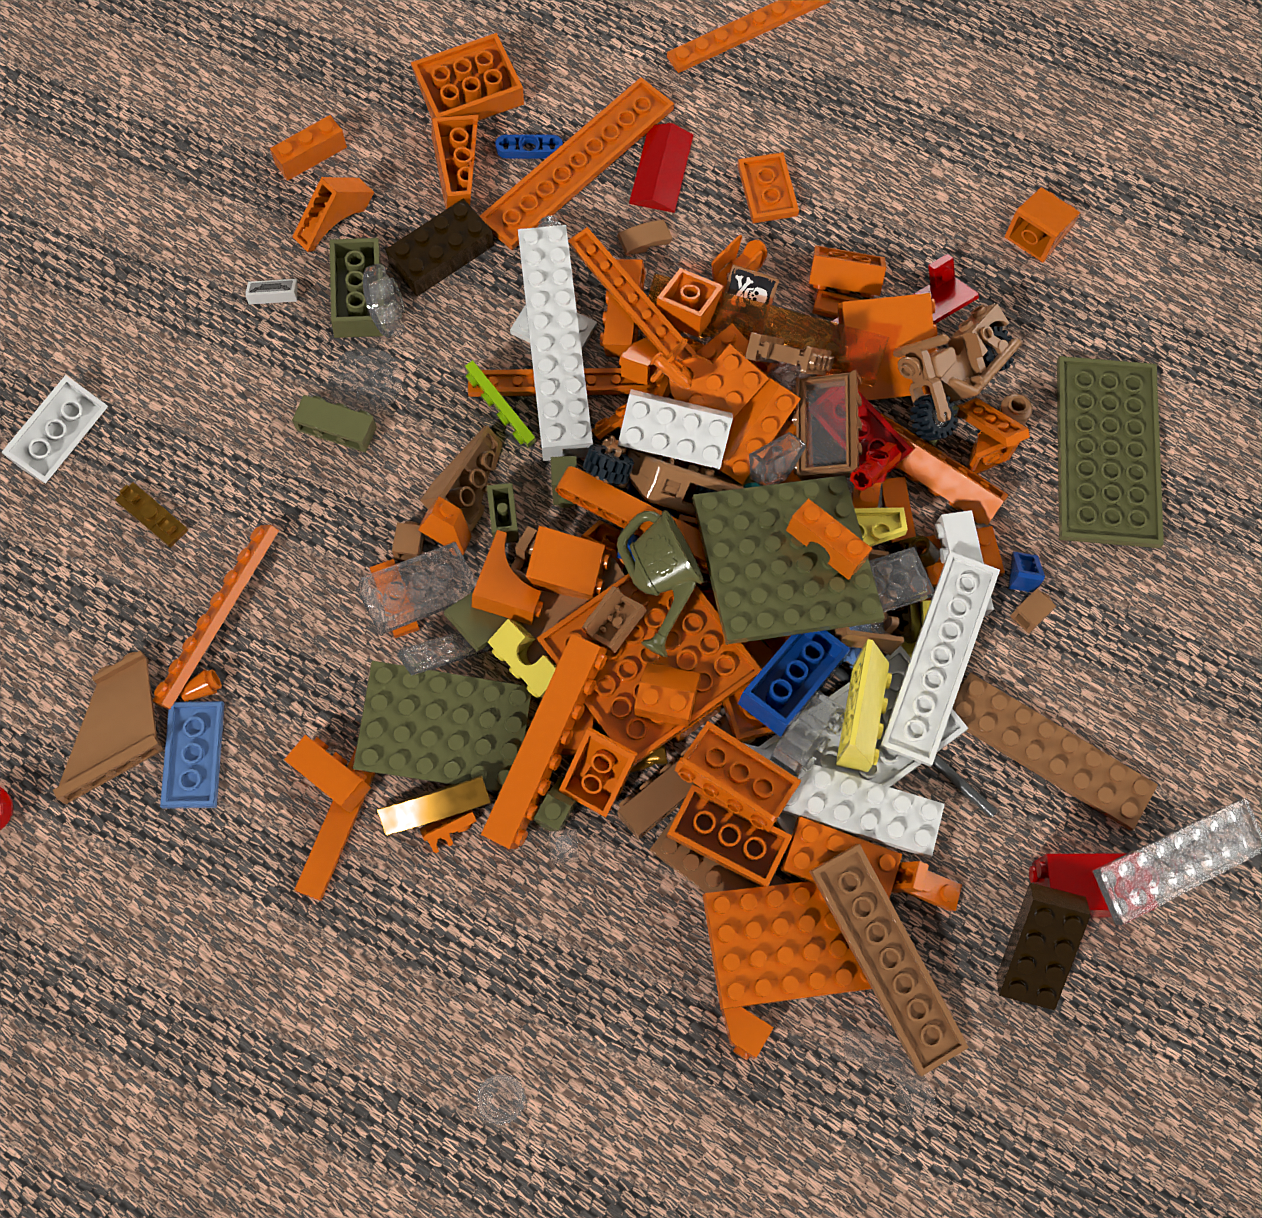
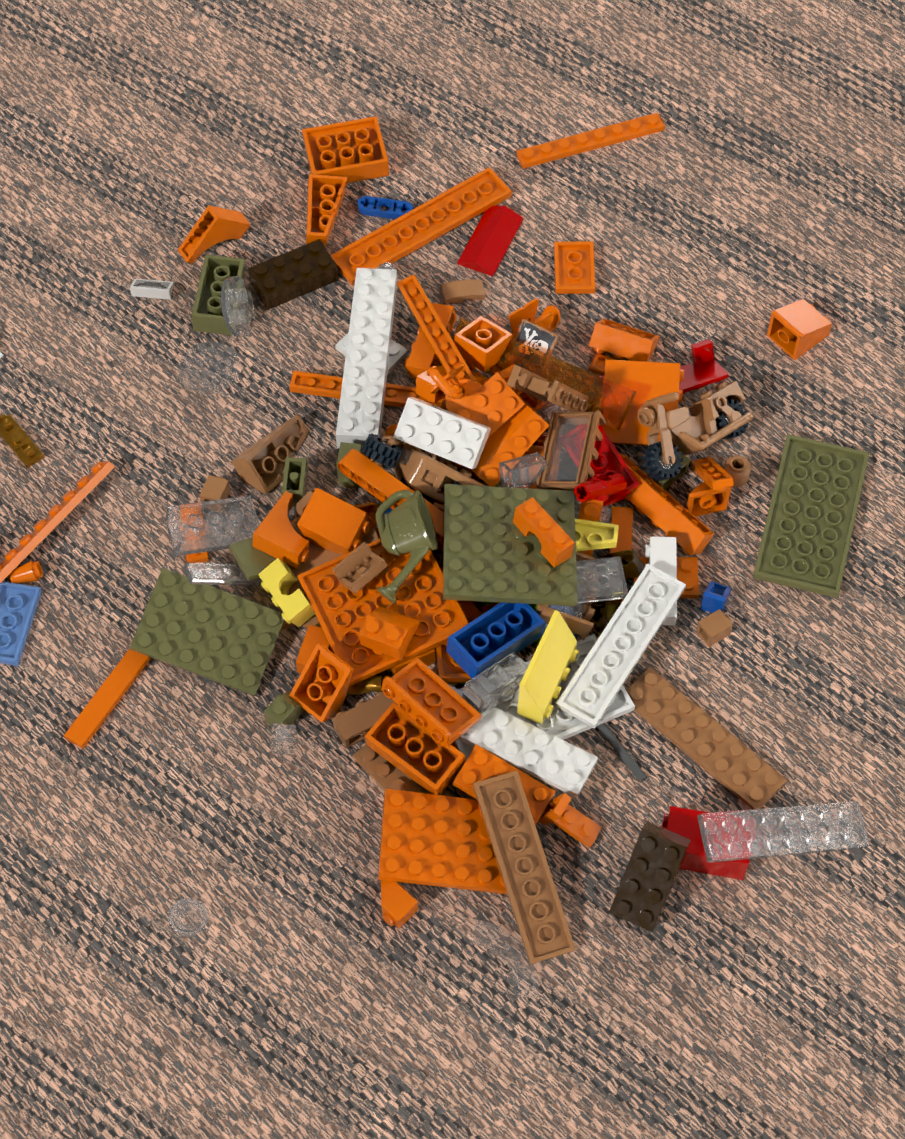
camera: 15 degrees right, 10 degrees down
(308, 147) = (206, 183): orange brick -> none
(328, 772) = (110, 651): orange brick -> none
(334, 423) = (178, 394): olive brick -> none
(433, 805) = (187, 690): pearl gold slope -> none
(443, 827) = (205, 707): orange plate -> none
(446, 524) = (247, 481): orange slope -> none
(493, 397) = (307, 393): lime plate -> none
(544, 742) = (285, 653): orange brick -> none

